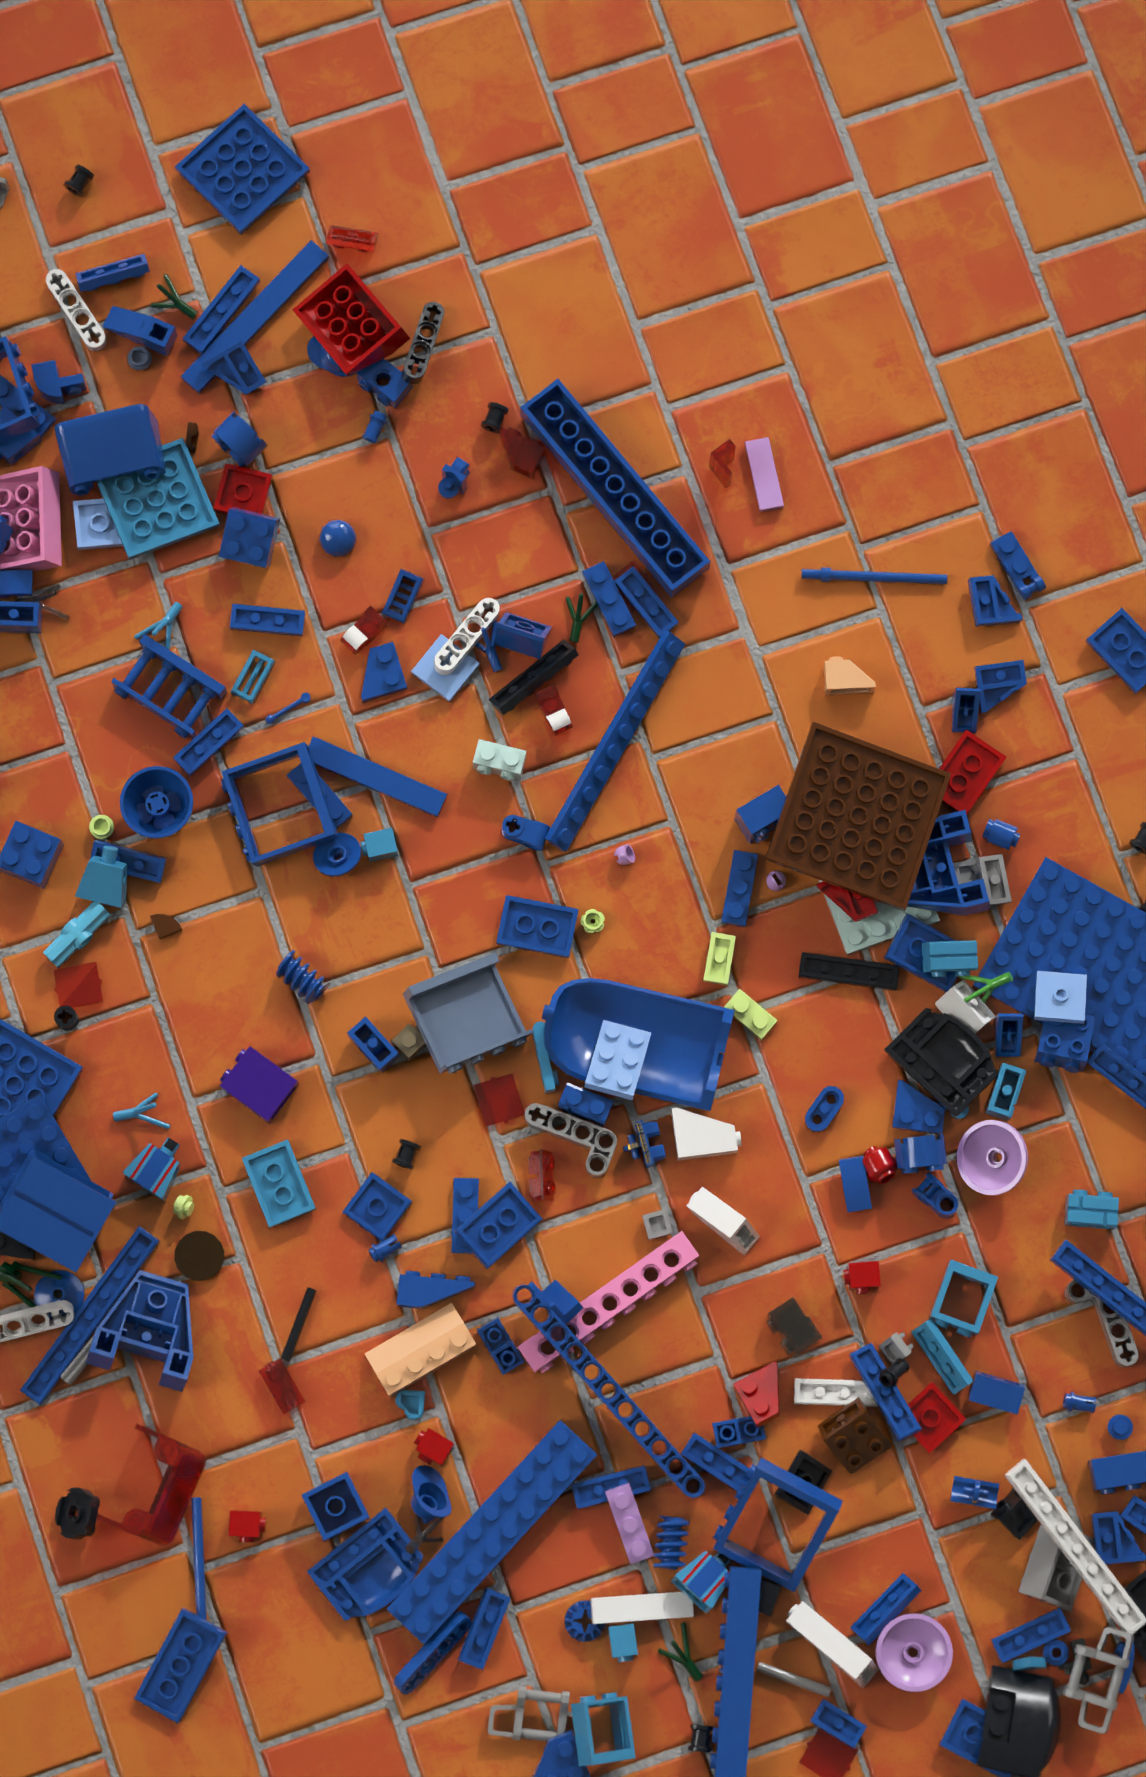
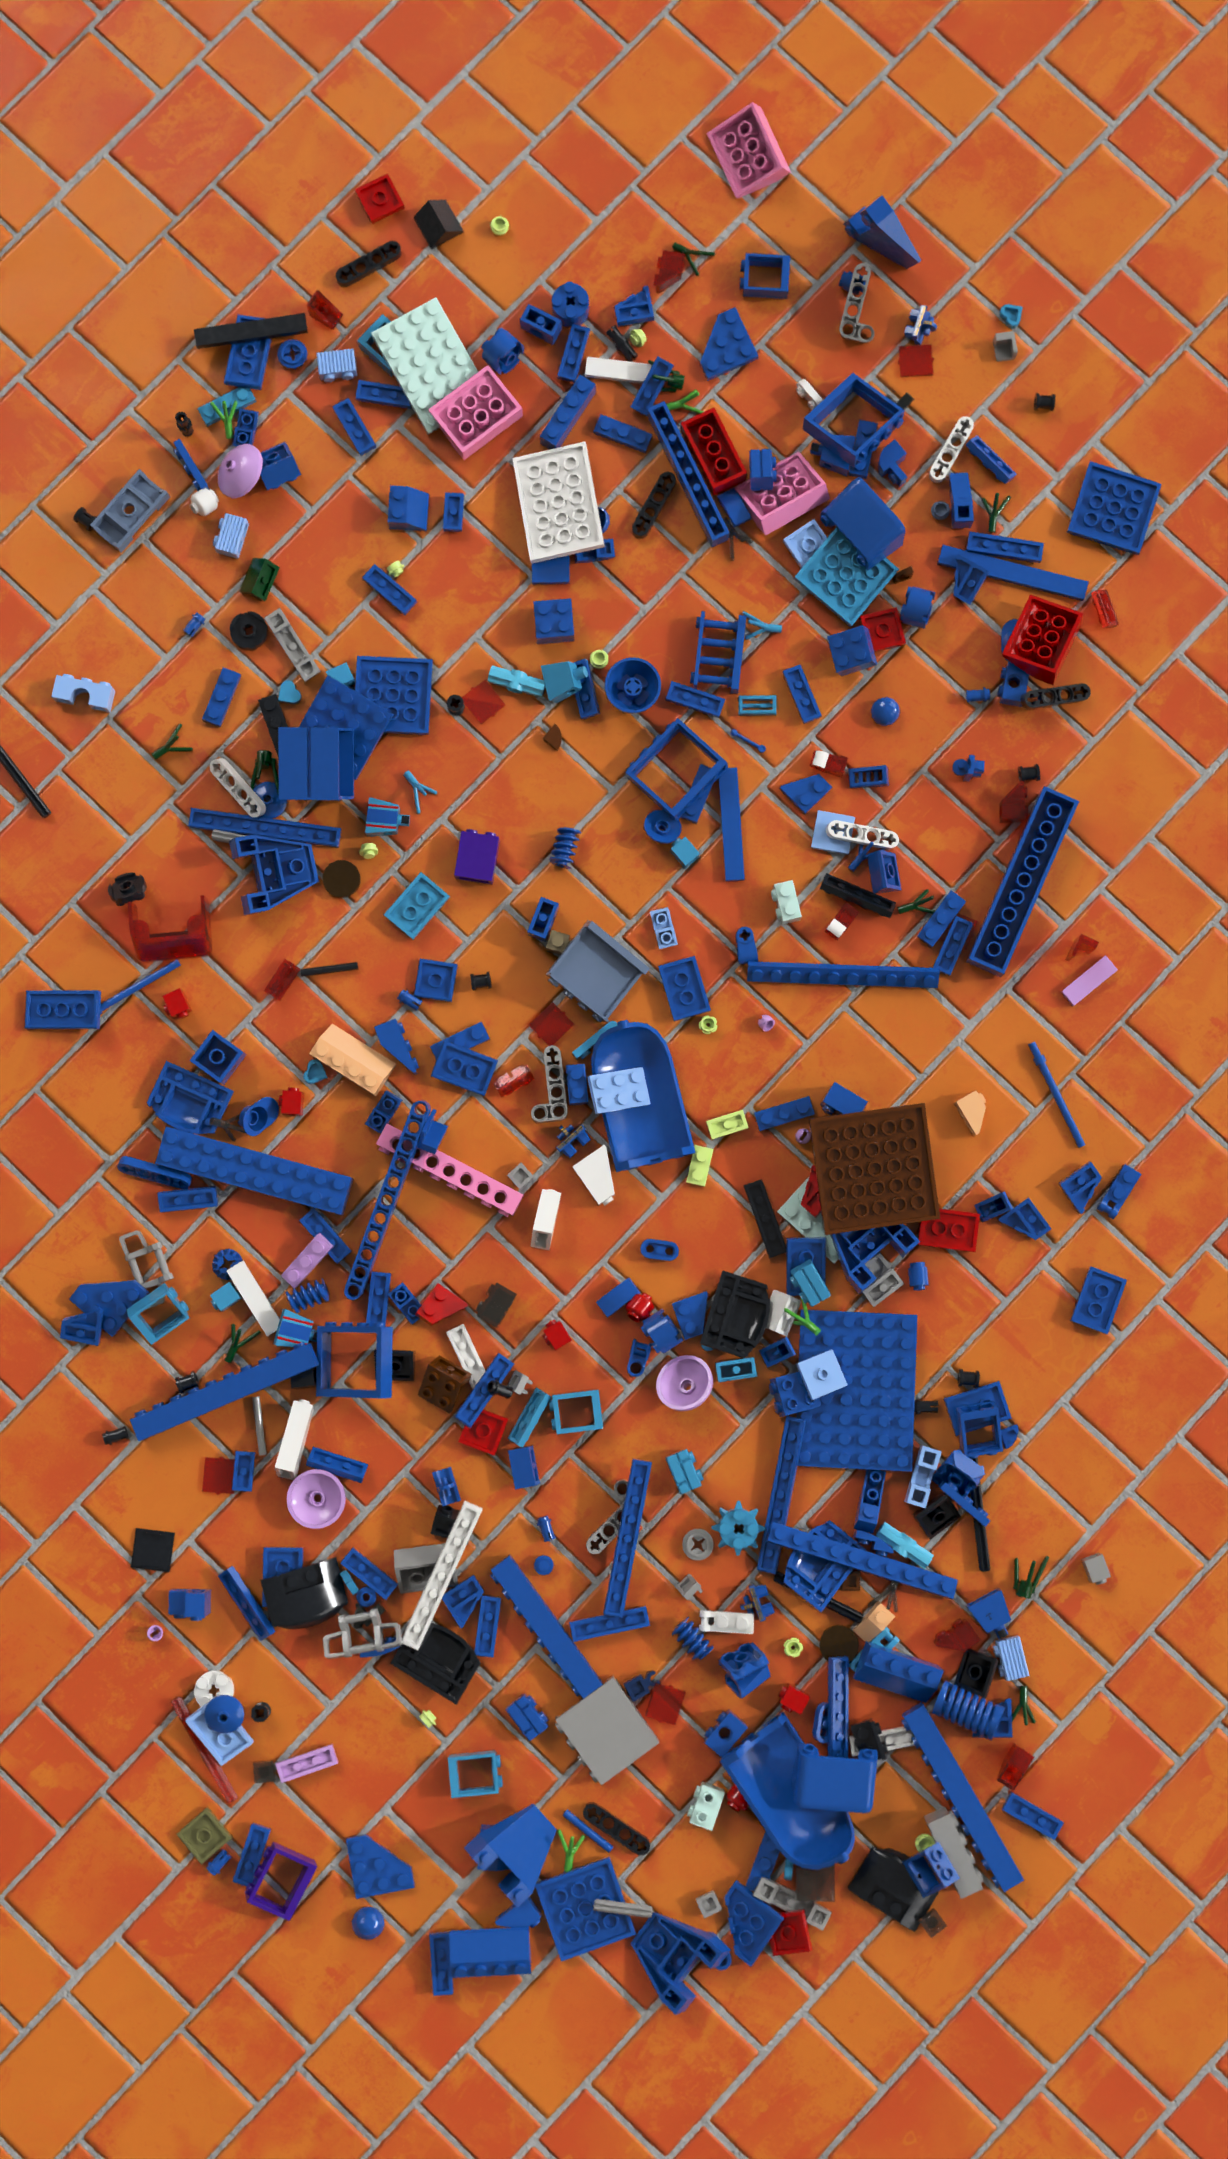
camera: 65 degrees right, 5 degrees up
(454, 914) = (663, 928): none -> light blue slope

